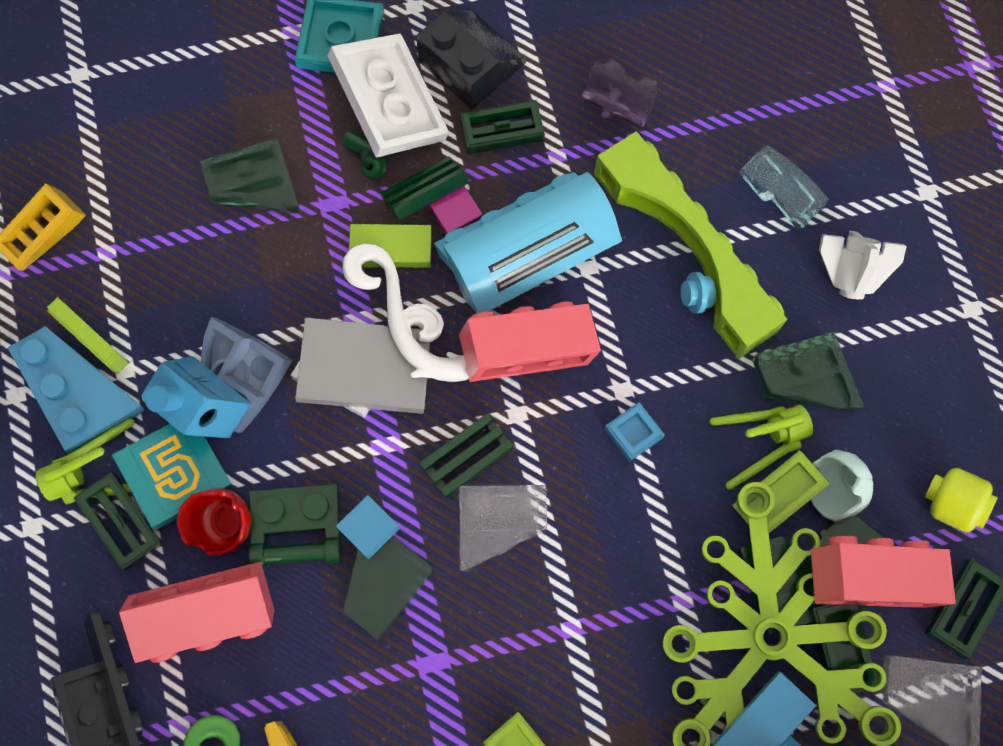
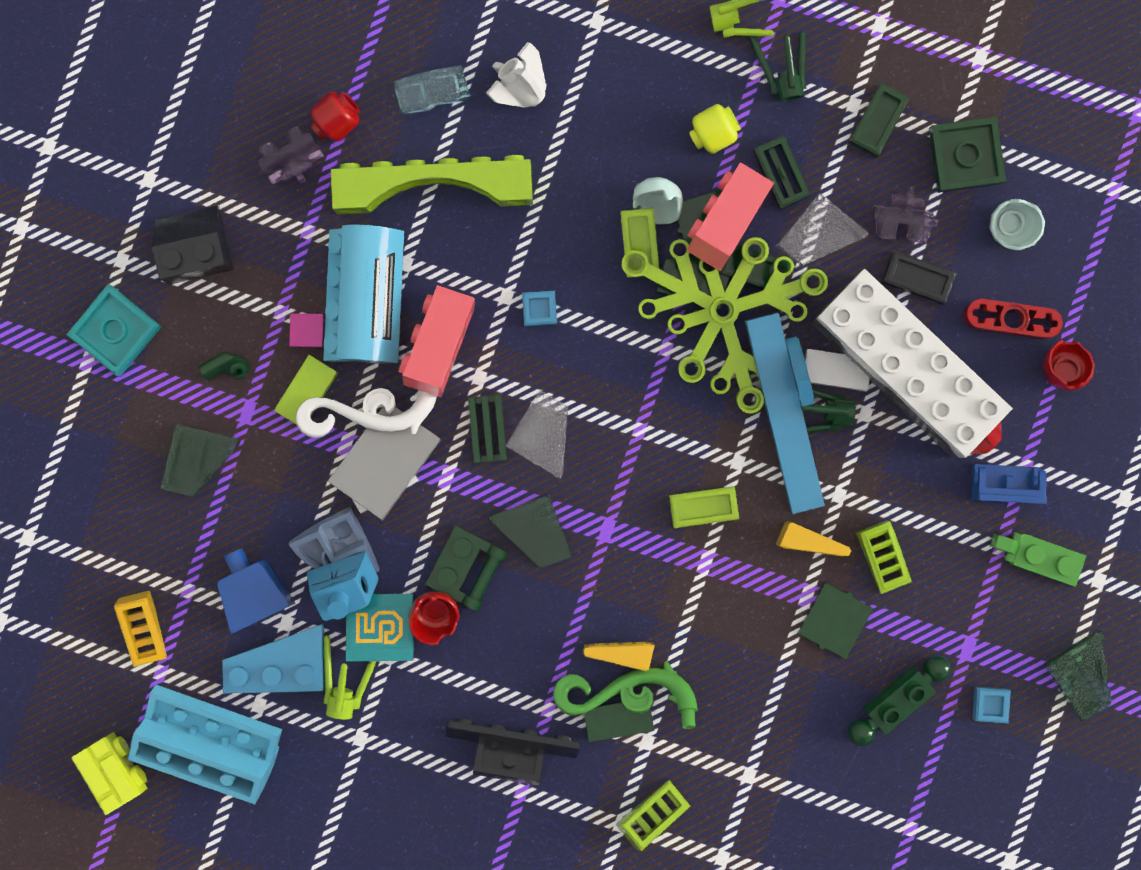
camera: 55 degrees left, 15 degrees up
(87, 336) = (248, 635): lime tile -> none
(137, 311) = (251, 591): none -> blue torso
(139, 550) = (363, 682): dark green tile -> none
(197, 613) = (487, 659): coral brick -> none
(368, 527) = (497, 521): dark azure tile -> none
(388, 94) = (190, 325): white plate -> none
(424, 187) = (277, 342): dark green tile -> none
(502, 133) = (274, 260): dark green tile -> none
(690, 110) = (335, 116): none -> red head
(698, 292) = (472, 202): medium azure plate -> none
(784, 426) = (599, 206): lime plant -> none
(809, 374) = (573, 167): clear green wing -> none

